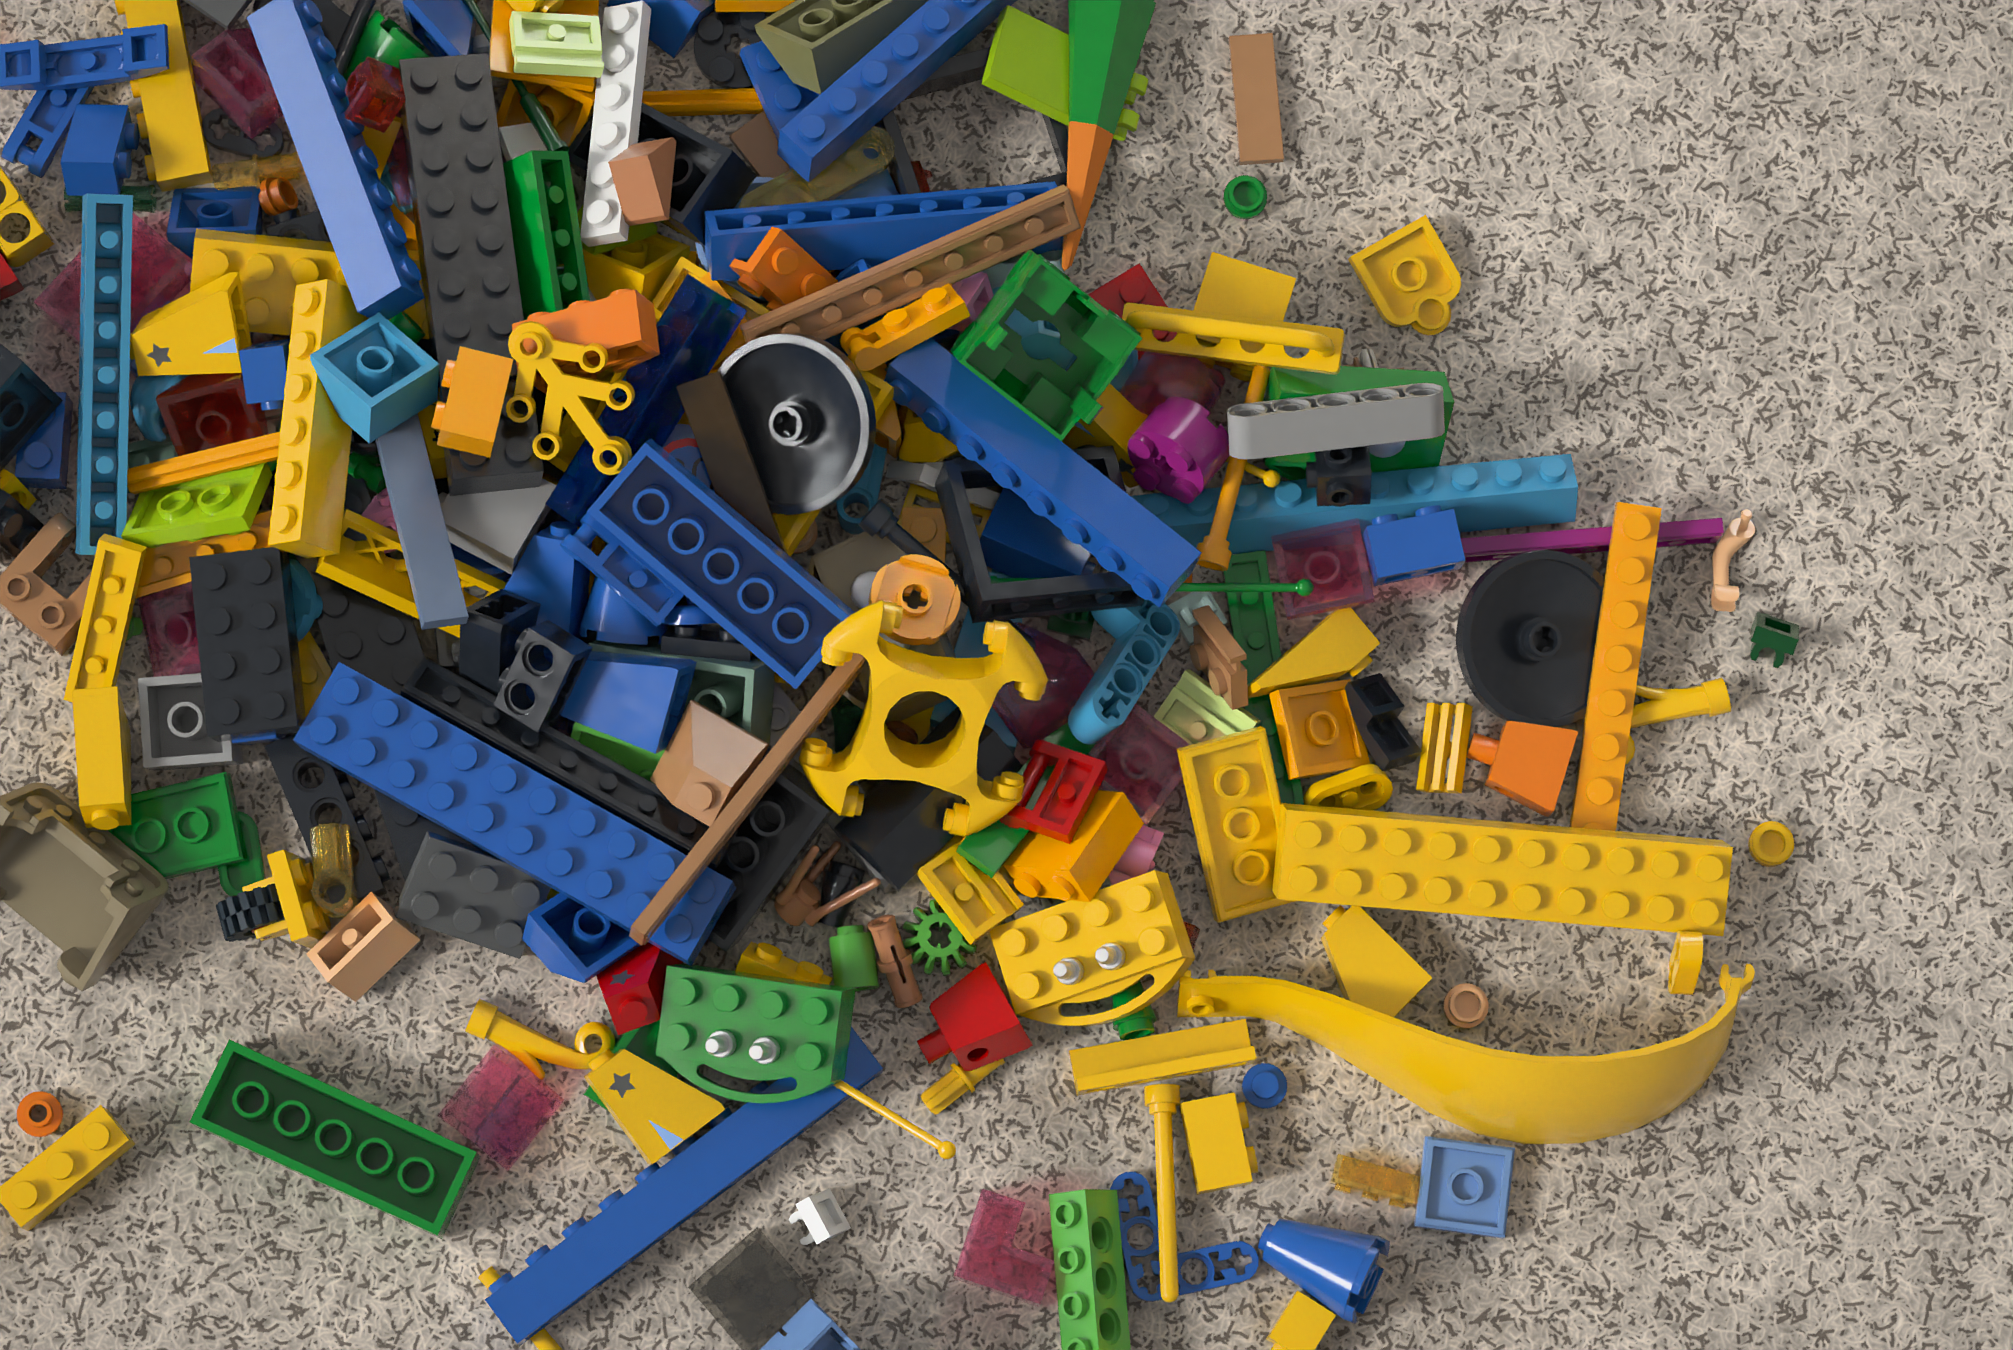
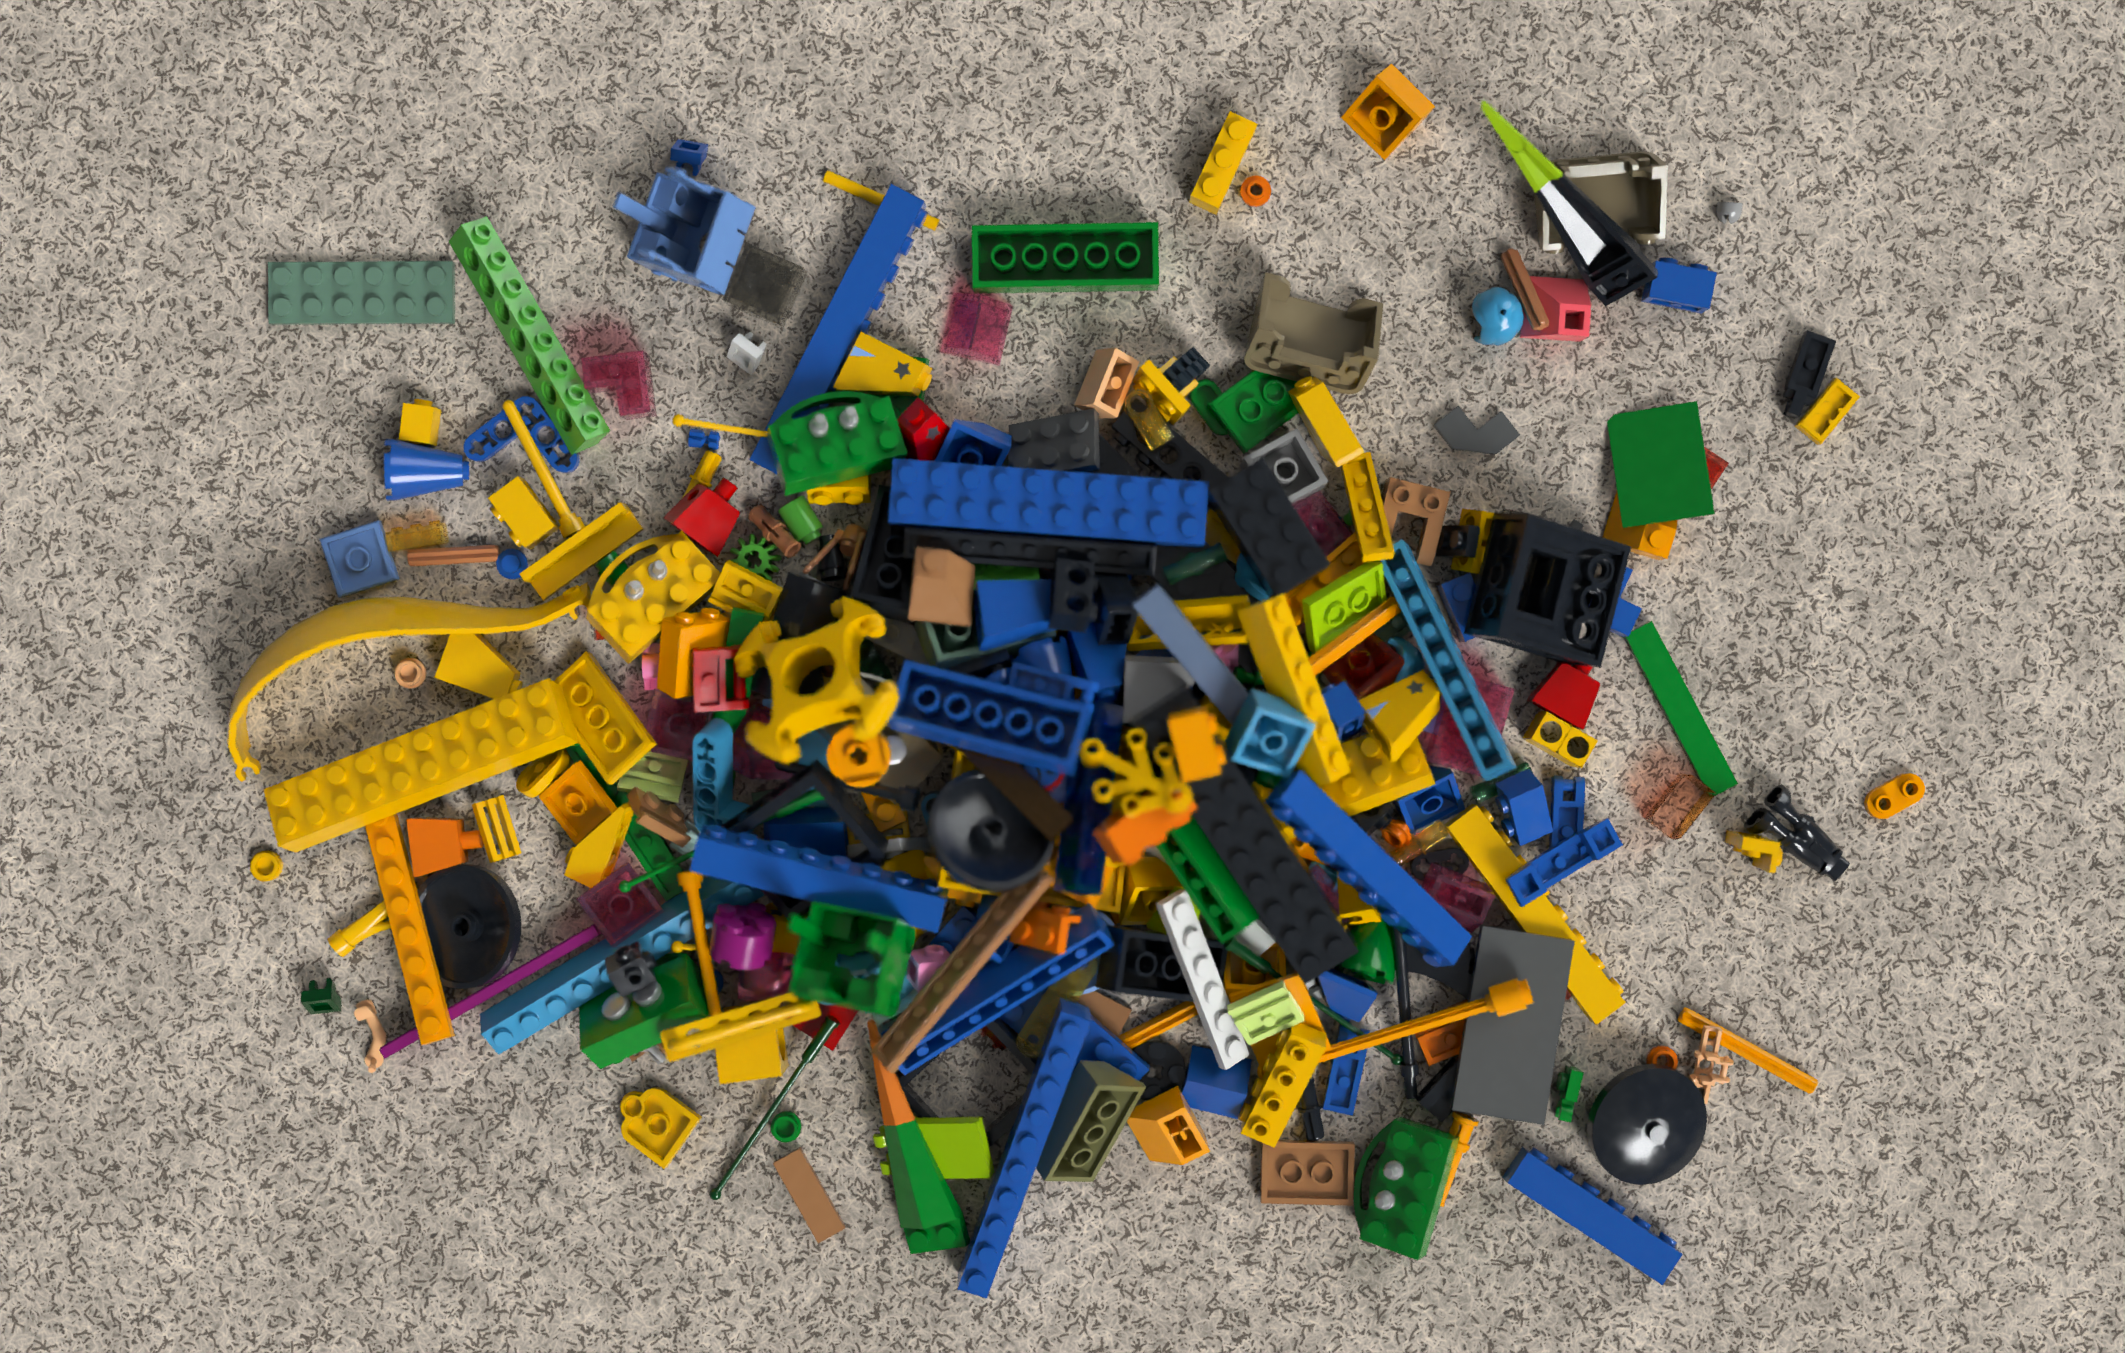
camera: 160 degrees right, 10 degrees up
(363, 650) = (1195, 563): none -> clear green pin
(368, 88) = (1362, 920): clear red brick -> none
(530, 1044) = (976, 376): yellow plant -> none
(645, 180) = (1163, 948): nougat slope -> none
(745, 800) = (904, 568): medium nougat tile -> none
(904, 328) = (949, 928): light orange plate -> none
(939, 1131) = (697, 439): none -> blue piece
(1174, 267) = (807, 1057): none -> dark green piece
(1336, 421) = (645, 999): light grey beam -> none
(1337, 1134) = (453, 555): none -> nougat axle
(1376, 717) = (550, 831): black slope -> none
(1413, 545) = (566, 944): blue brick -> none
(1685, 962) = (281, 762): yellow beam -> none

